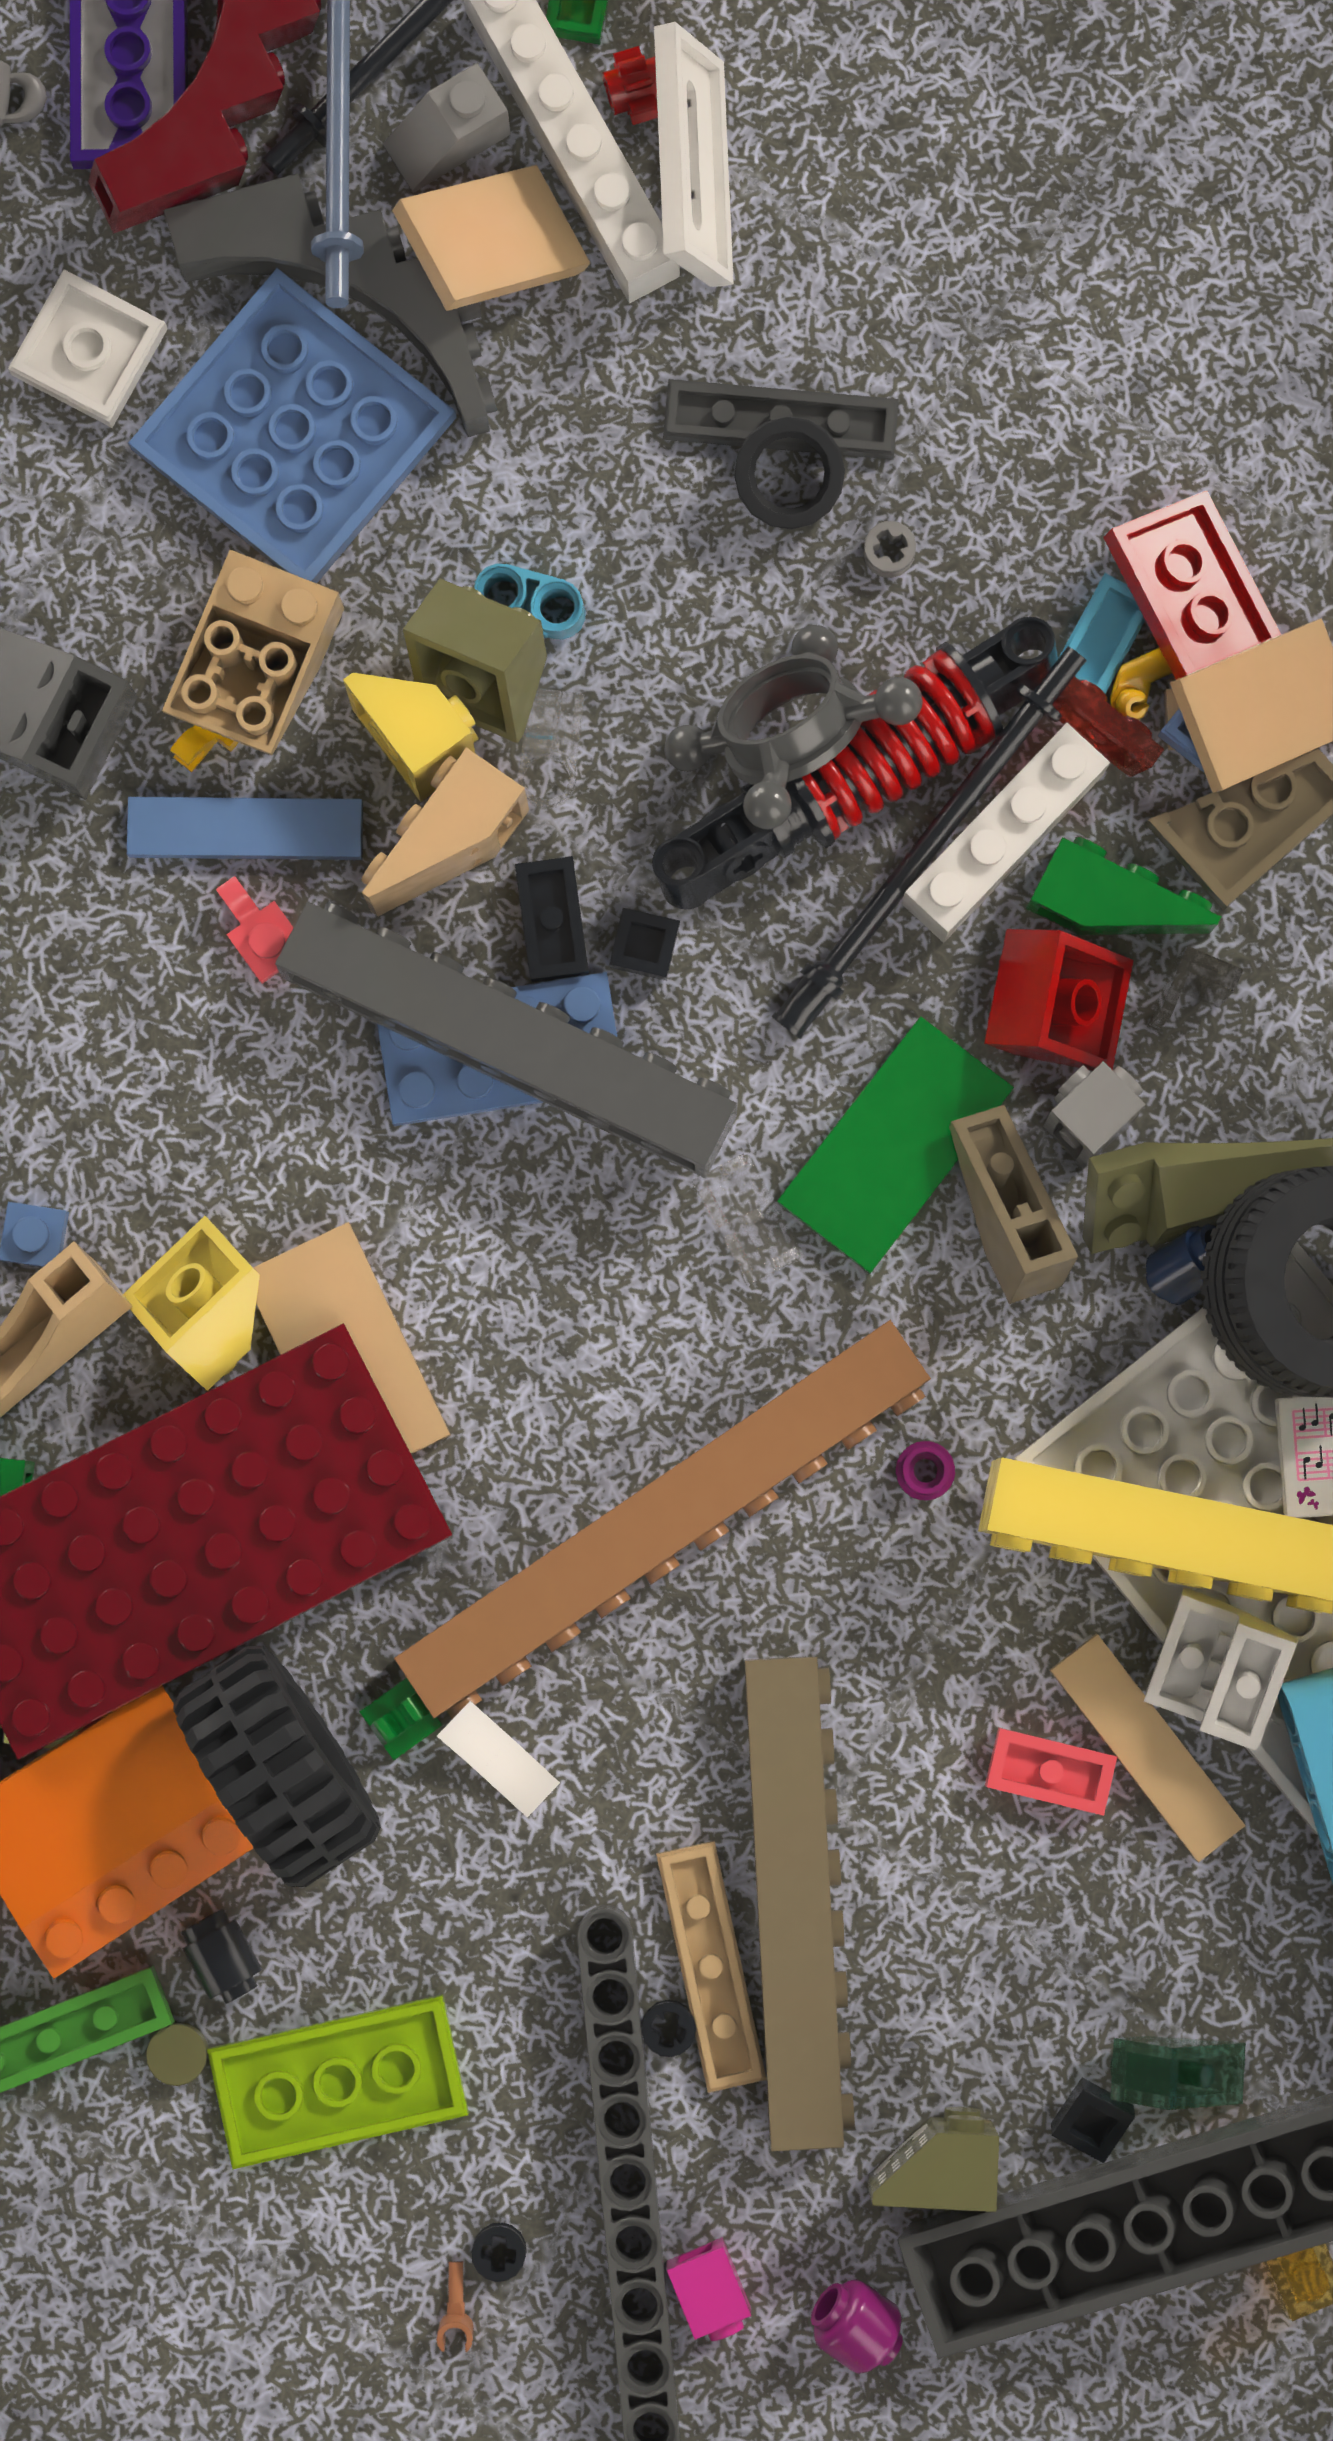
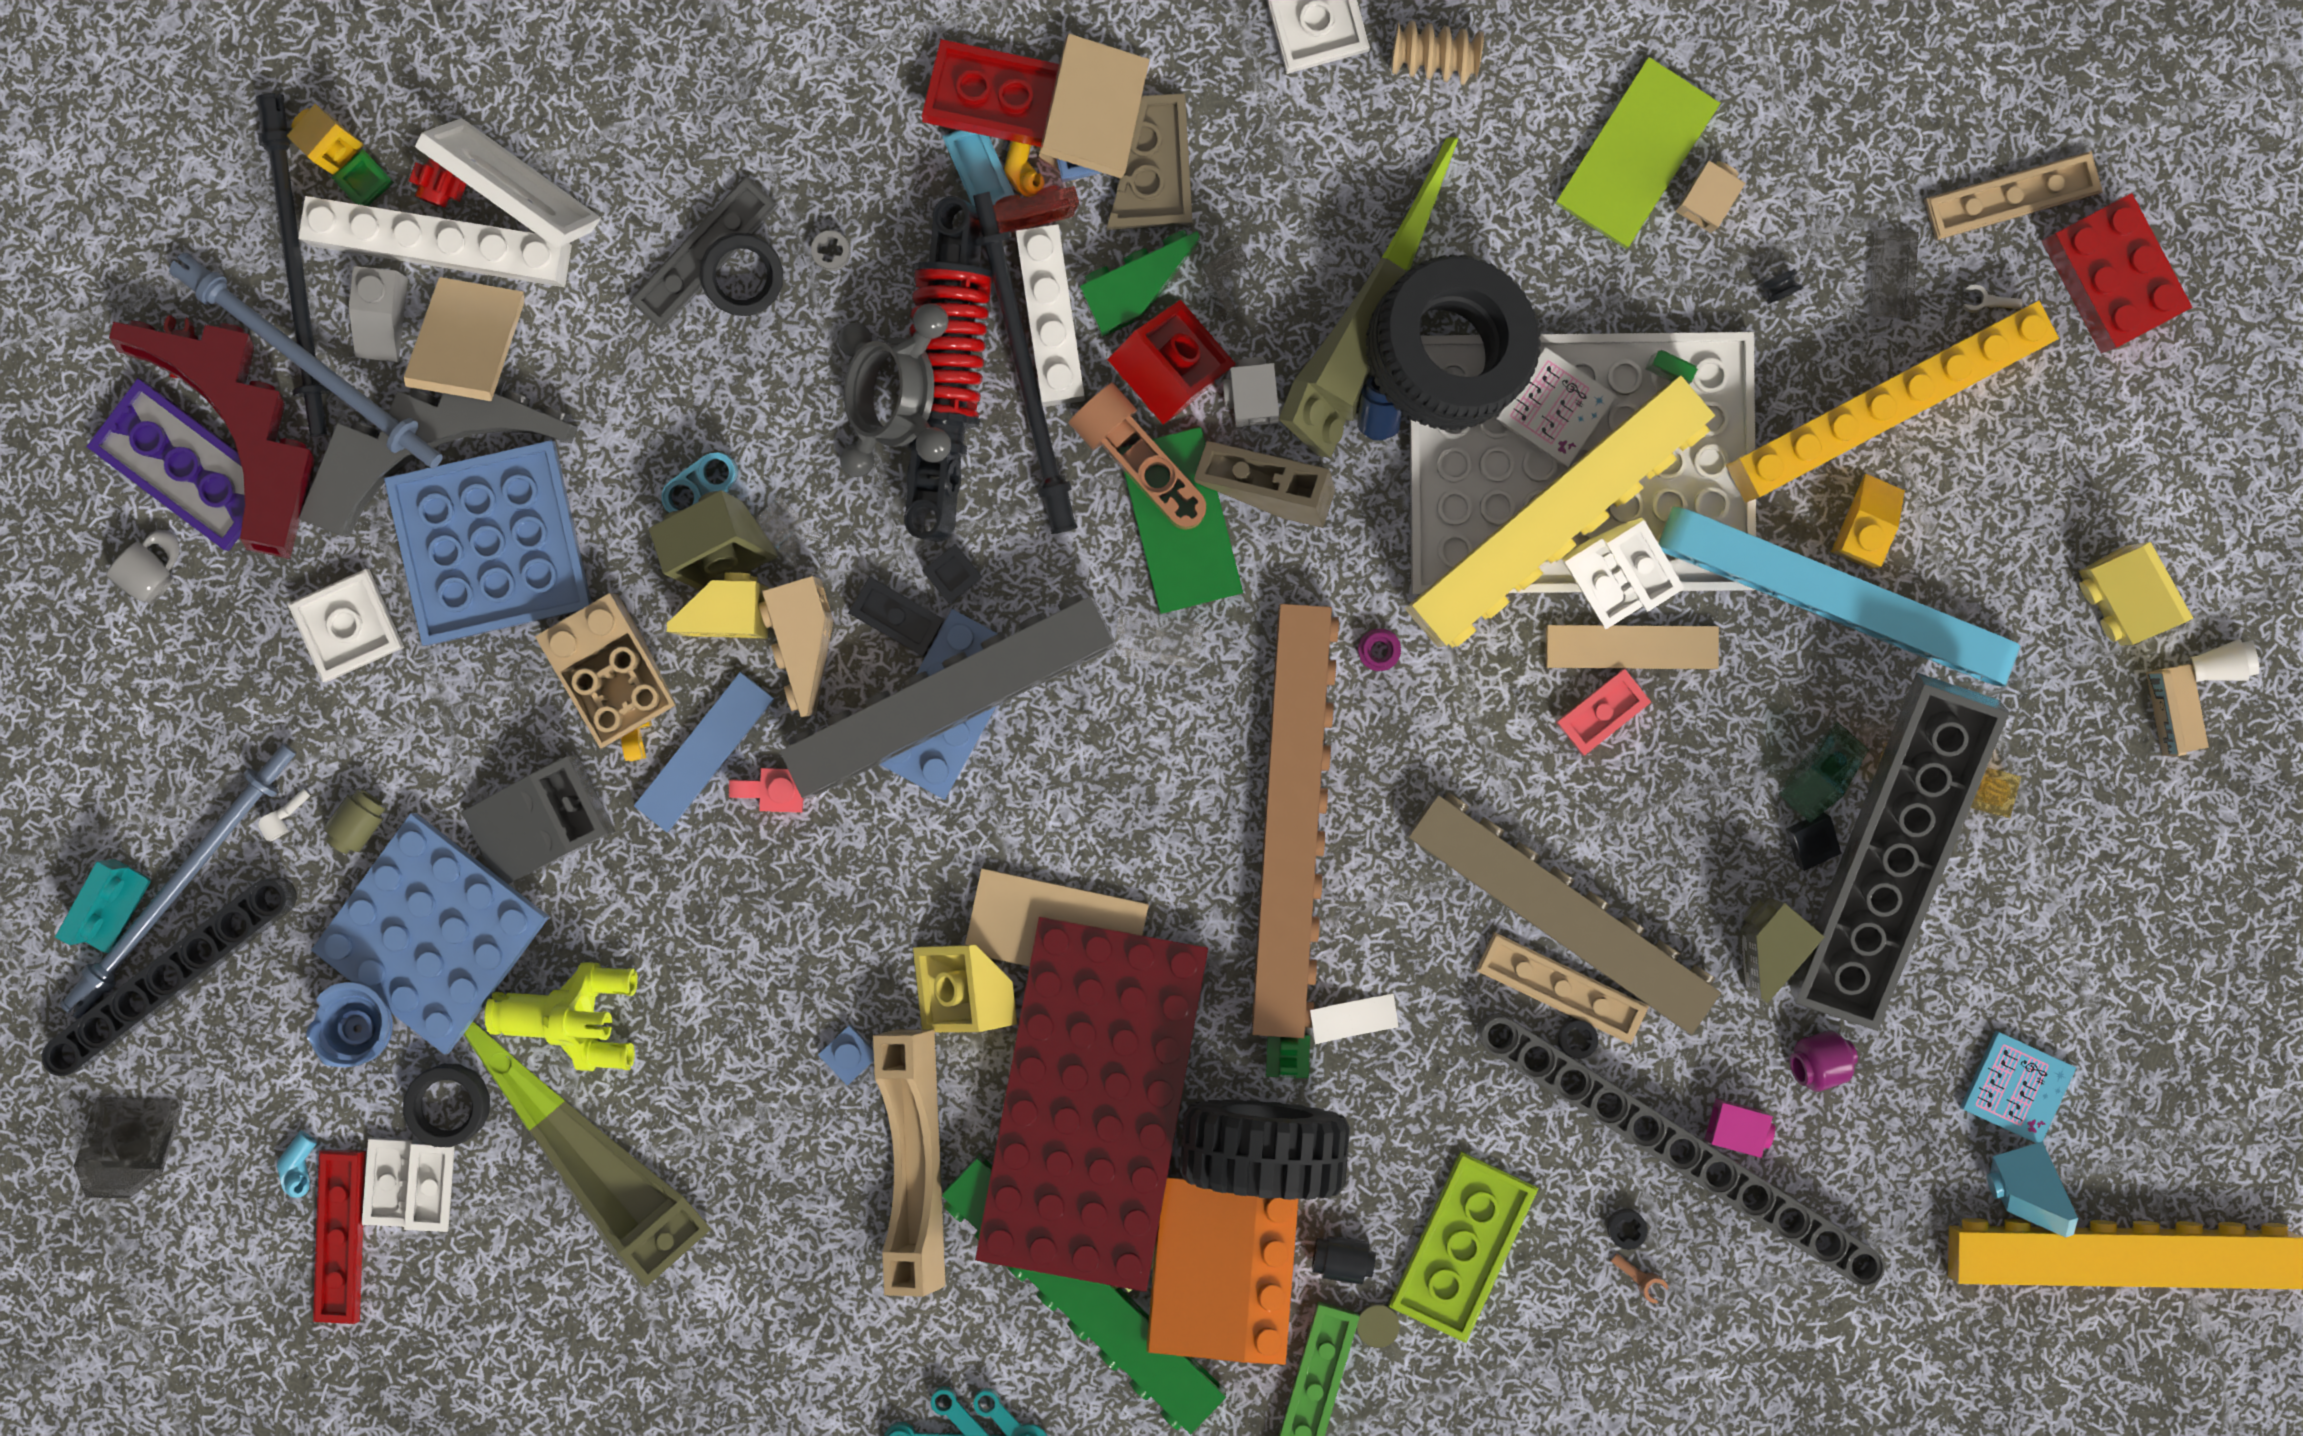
camera: 60 degrees left, 5 degrees up
(940, 981) = (1109, 423): none -> nougat beam

